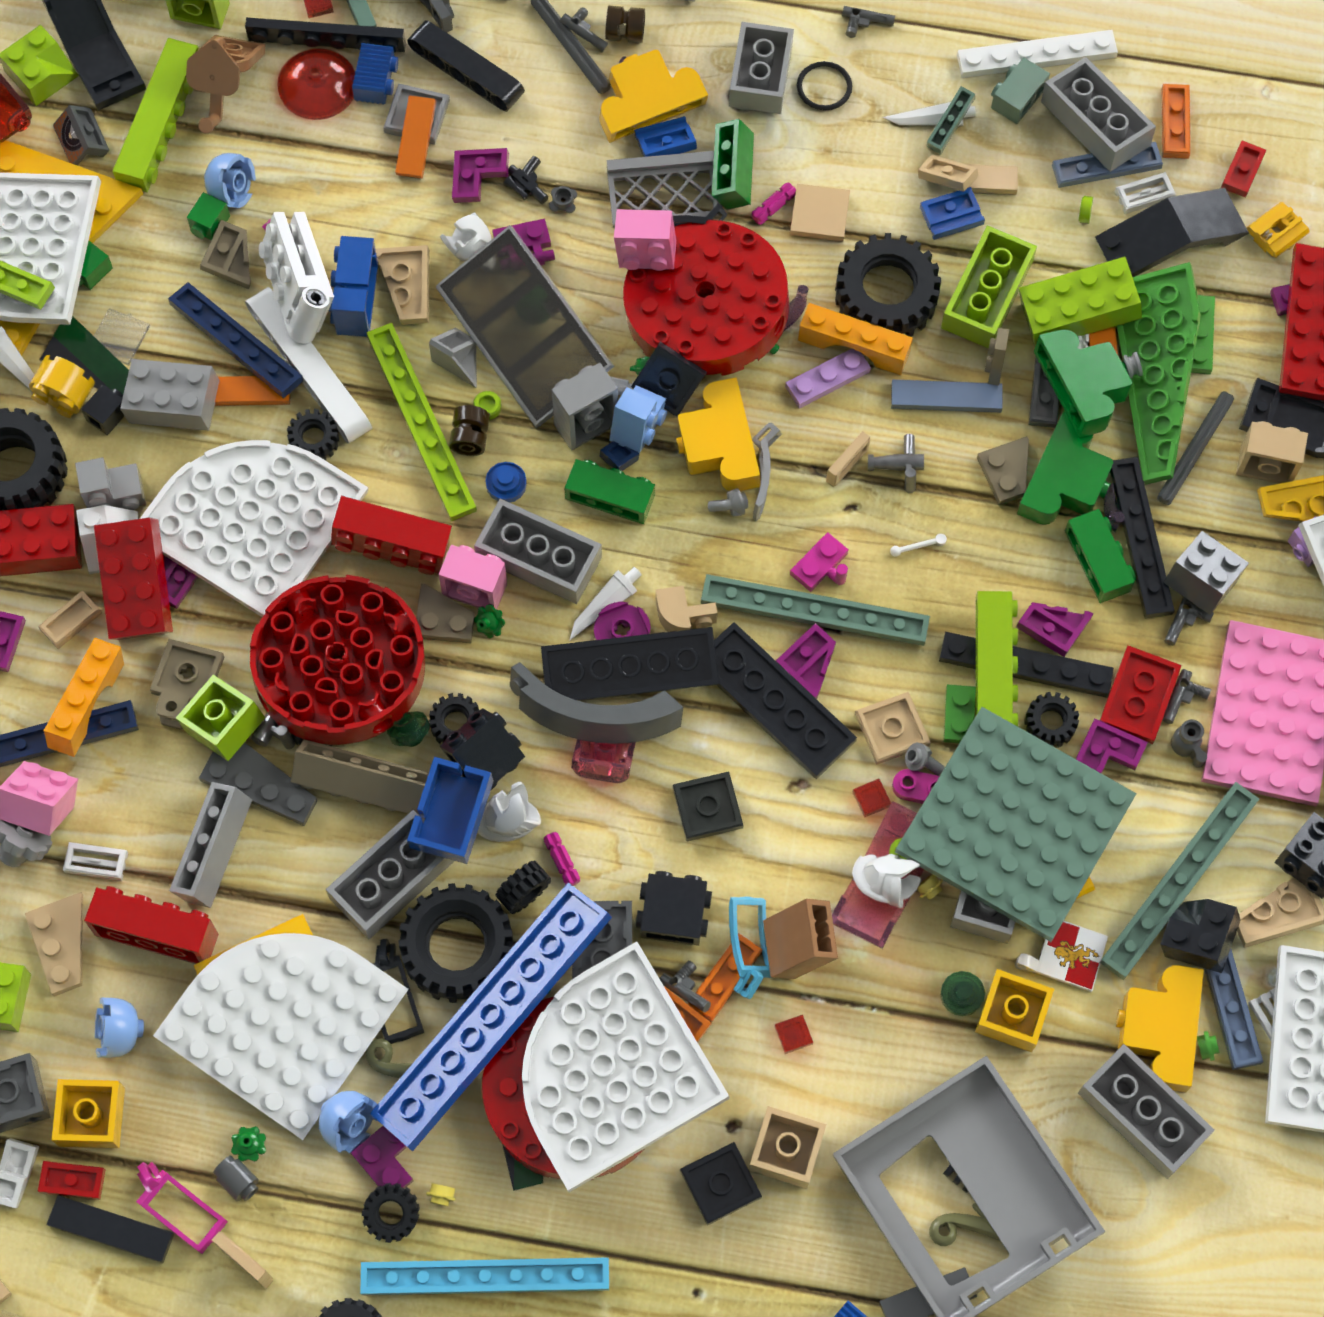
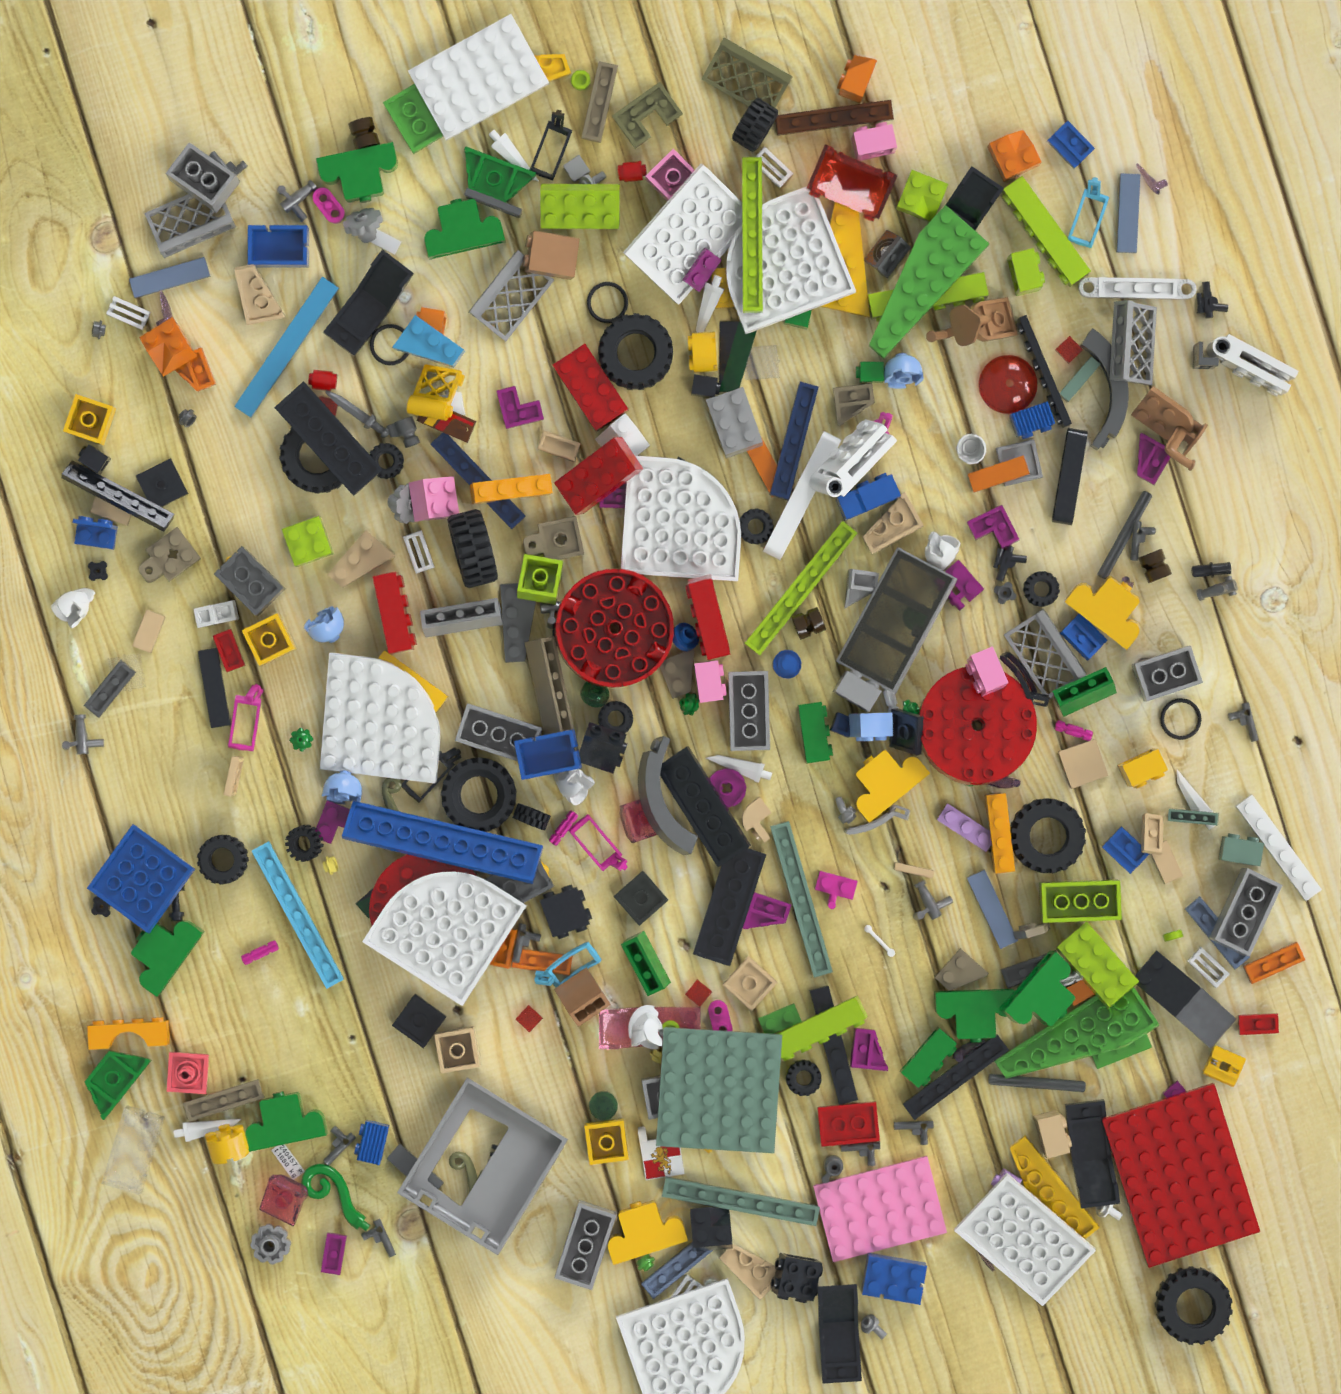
camera: 70 degrees right, 20 degrees up
(110, 487) = (653, 422): light grey brick -> none
(124, 83) = (935, 263): none -> bright green wing
(127, 774) = (472, 548): none -> black tyre
(236, 1179) = (278, 744): dark grey brick -> none
(367, 151) = (971, 449): none -> white hair
(402, 582) = (685, 637): none -> blue plate
(489, 401) = (834, 622): lime tile -> none
(577, 144) = (1051, 582): none -> black tyre
(638, 821) = (612, 860): none -> dark pink sword
(798, 839) = (645, 963): none -> green brick
(862, 142) = (1142, 768): none -> yellow brick
(919, 755) = (737, 1010): light grey plate -> none
(1110, 743) = (805, 1116): magenta plate -> none
(1133, 364) = (1068, 1019): light grey bush -> none
(1206, 572) = (948, 1129): brick -> none

